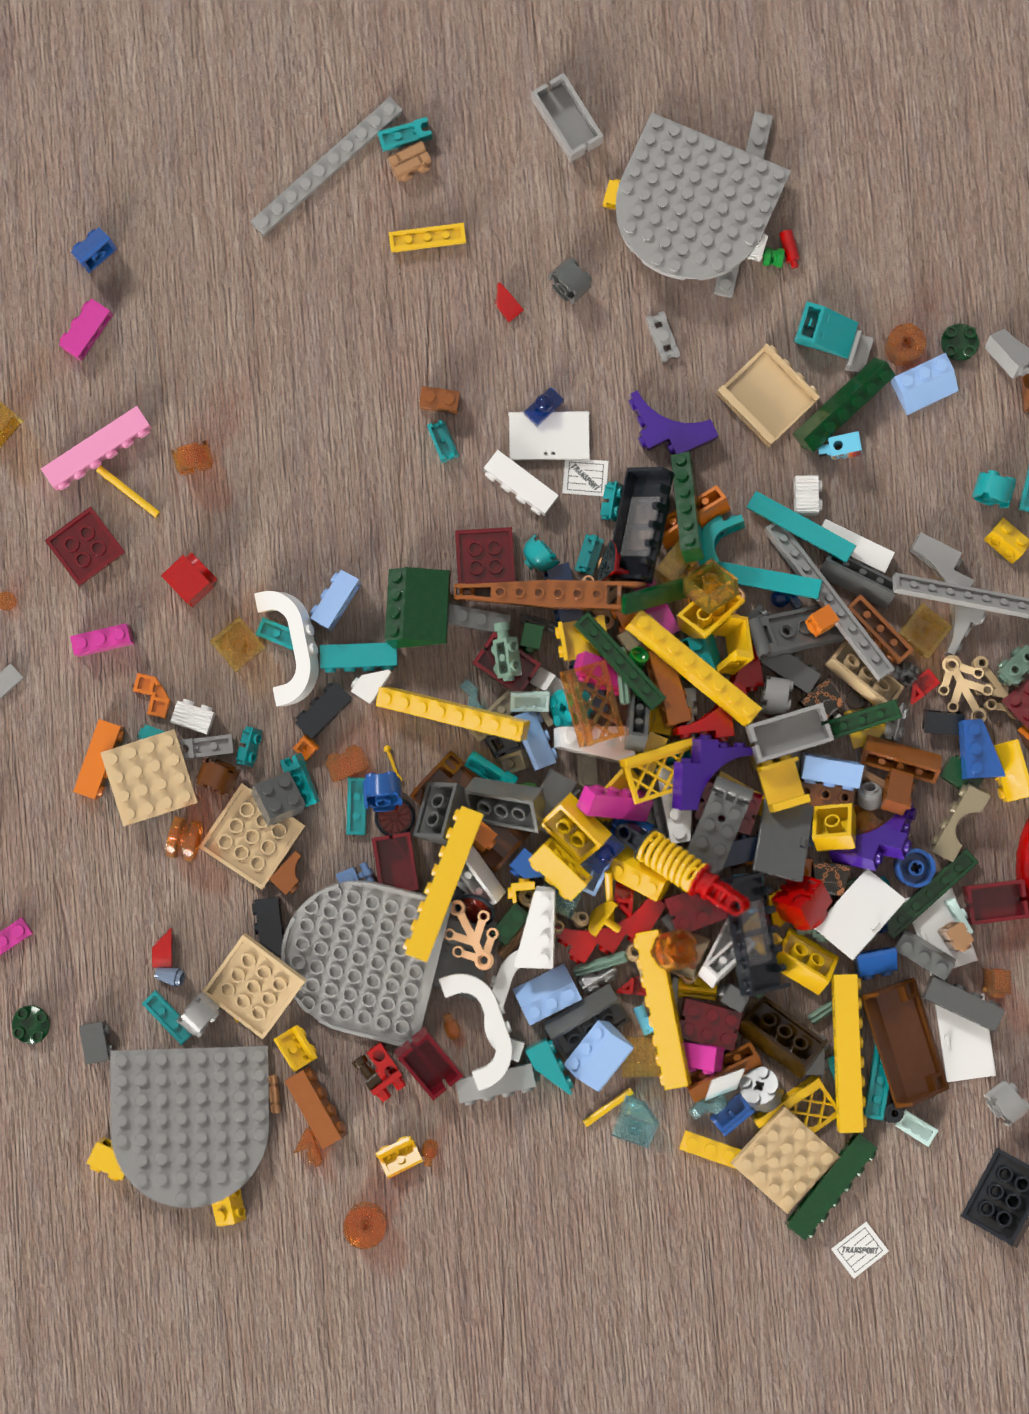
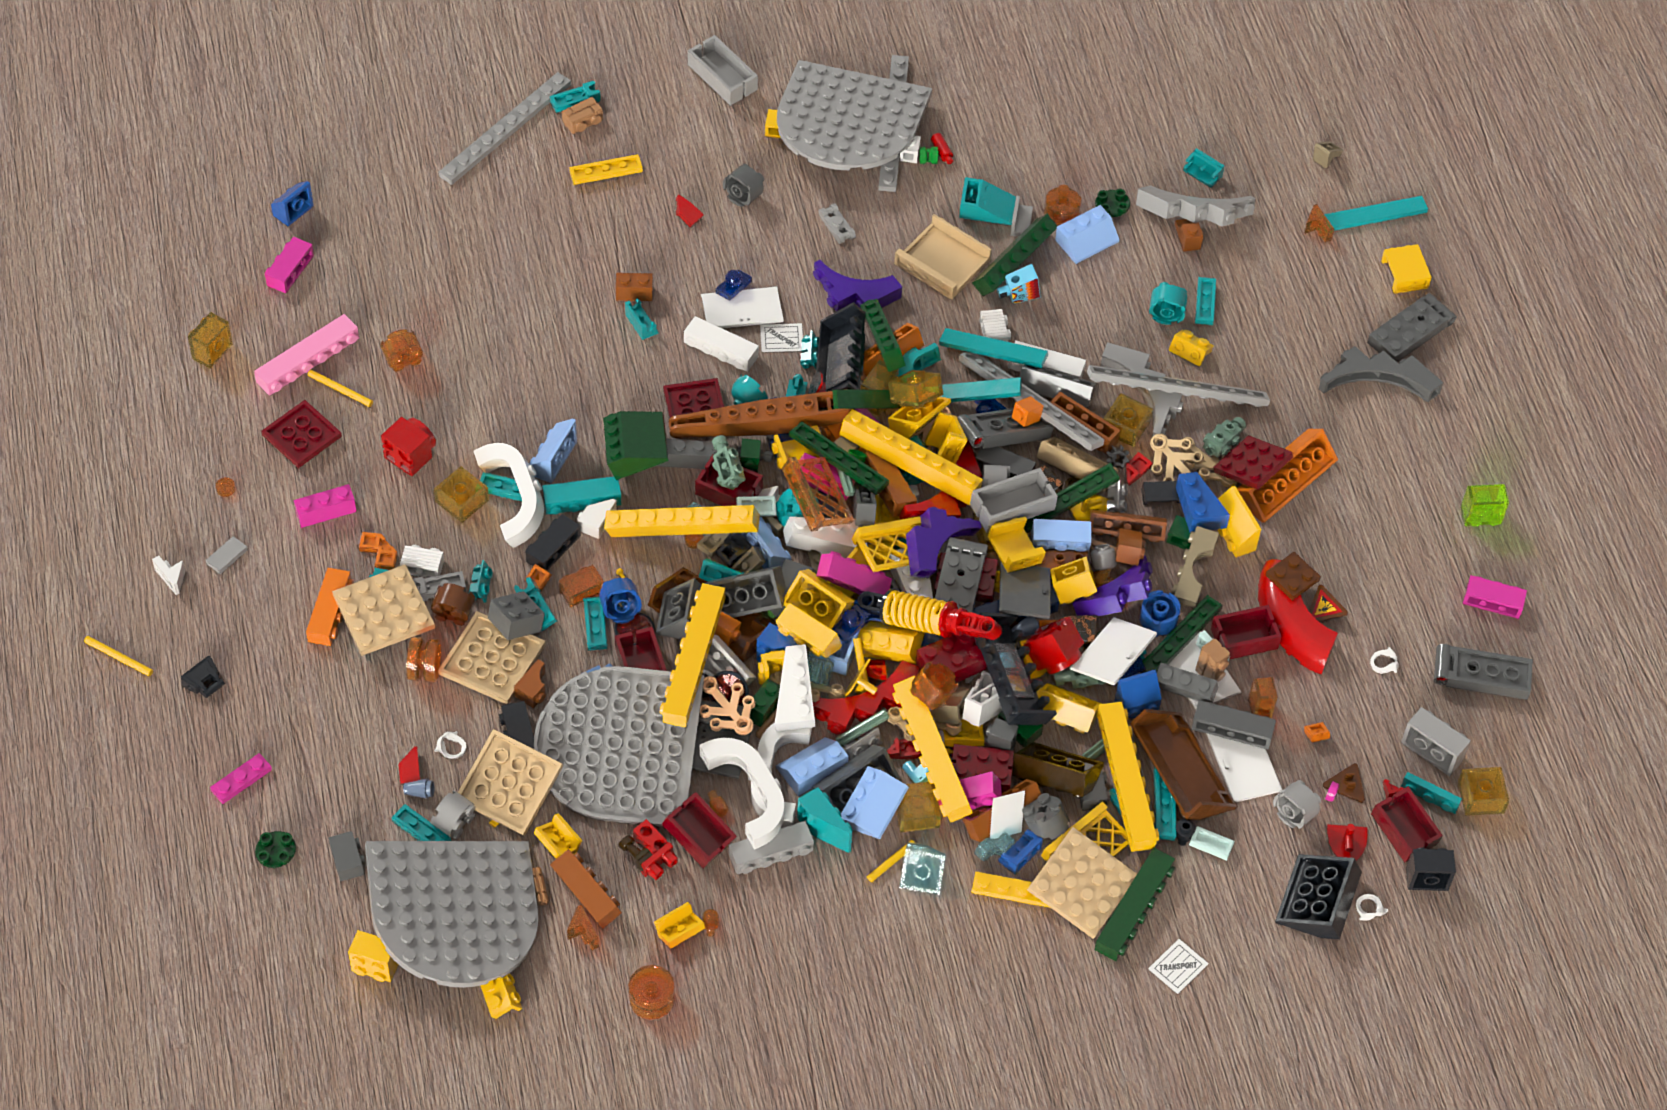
camera: 10 degrees left, 30 degrees down
(195, 928) = (455, 738): none -> white piece

